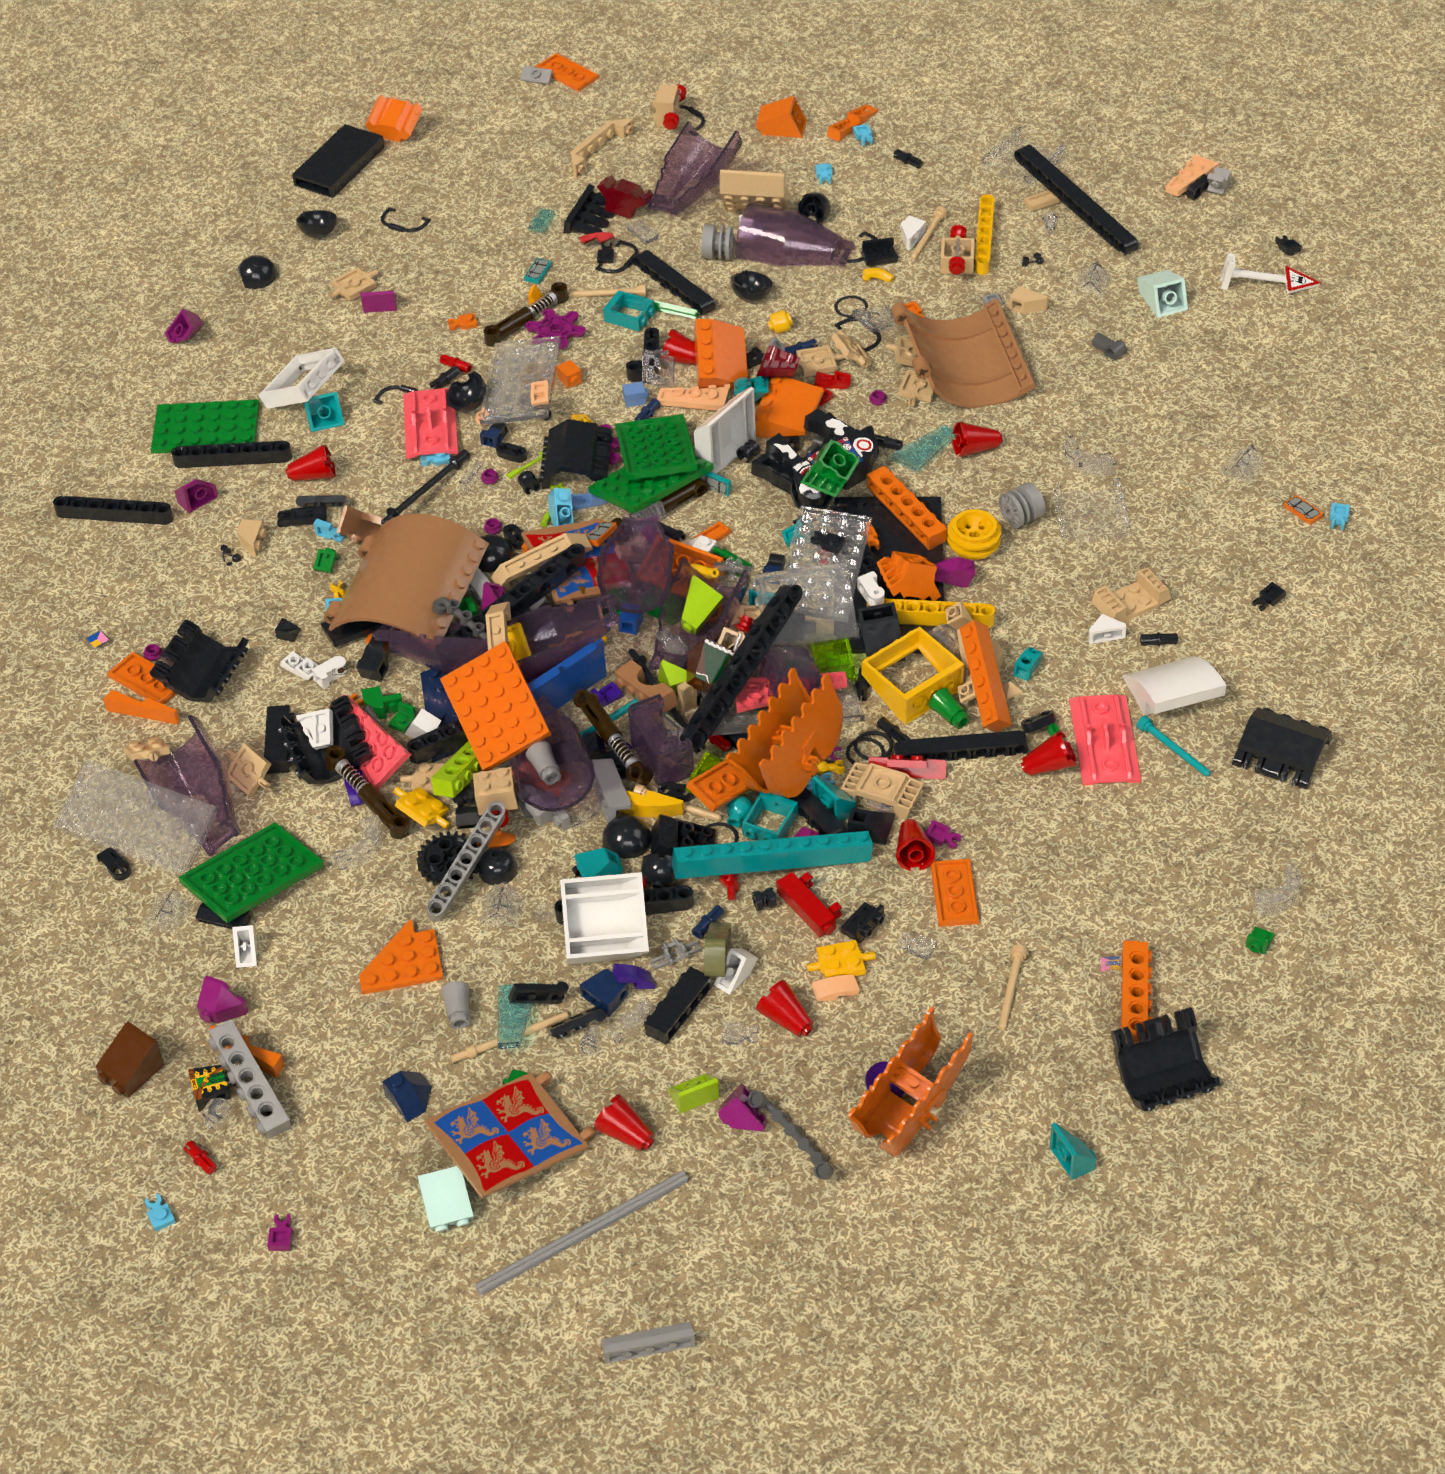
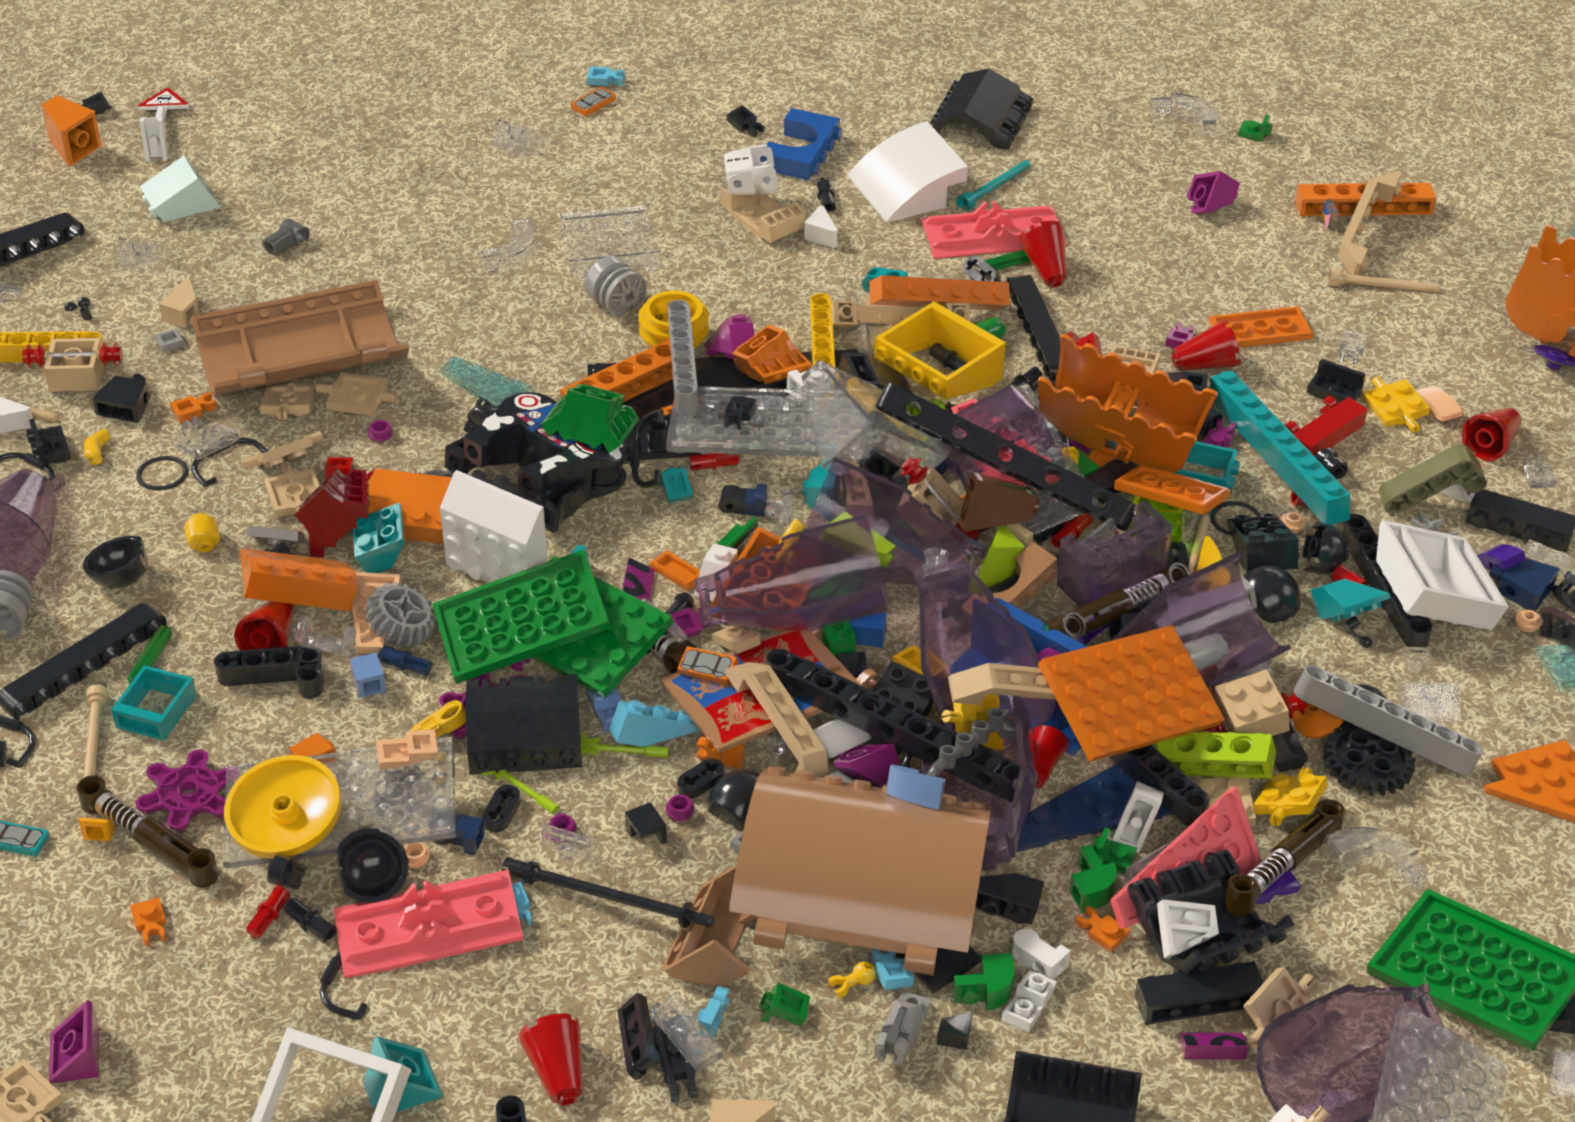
camera: 100 degrees left, 5 degrees down
(242, 735) = (1214, 1046): none -> magenta slope
(293, 605) = (902, 1027): none -> light grey plate
(308, 516) = (686, 1032): none -> clear plate
(314, 647) = (992, 984): none -> green brick
(442, 591) = (915, 787): none -> medium blue slope
(473, 361) = (285, 872): none -> black piece
(477, 508) = (644, 822): none -> black panel
(510, 350) = (283, 806): none -> yellow dish
(528, 482) = (578, 774): black wheel -> none
(574, 988) = (1528, 620): none -> light nougat plate
(691, 404) = (400, 615): none -> light grey gear
(699, 514) = (638, 579): none -> slope
(702, 927) = (1379, 510): dark blue axle -> none
(800, 346) = (262, 510): dark blue axle -> none
(897, 516) = (682, 357): none -> light grey beam
(923, 282) = (122, 398): none -> black torso
(974, 439) = (483, 337): red cone -> none
(1040, 965) = (1380, 187): none -> tan slope
(1145, 886) = (1212, 192): none -> magenta slope
(1155, 575) = (749, 175): none -> white piece
(1162, 1061) = (1457, 175): black hinge -> none
(1239, 230) = (71, 128): none -> orange slope
(1246, 641) = (805, 160): none -> blue arch

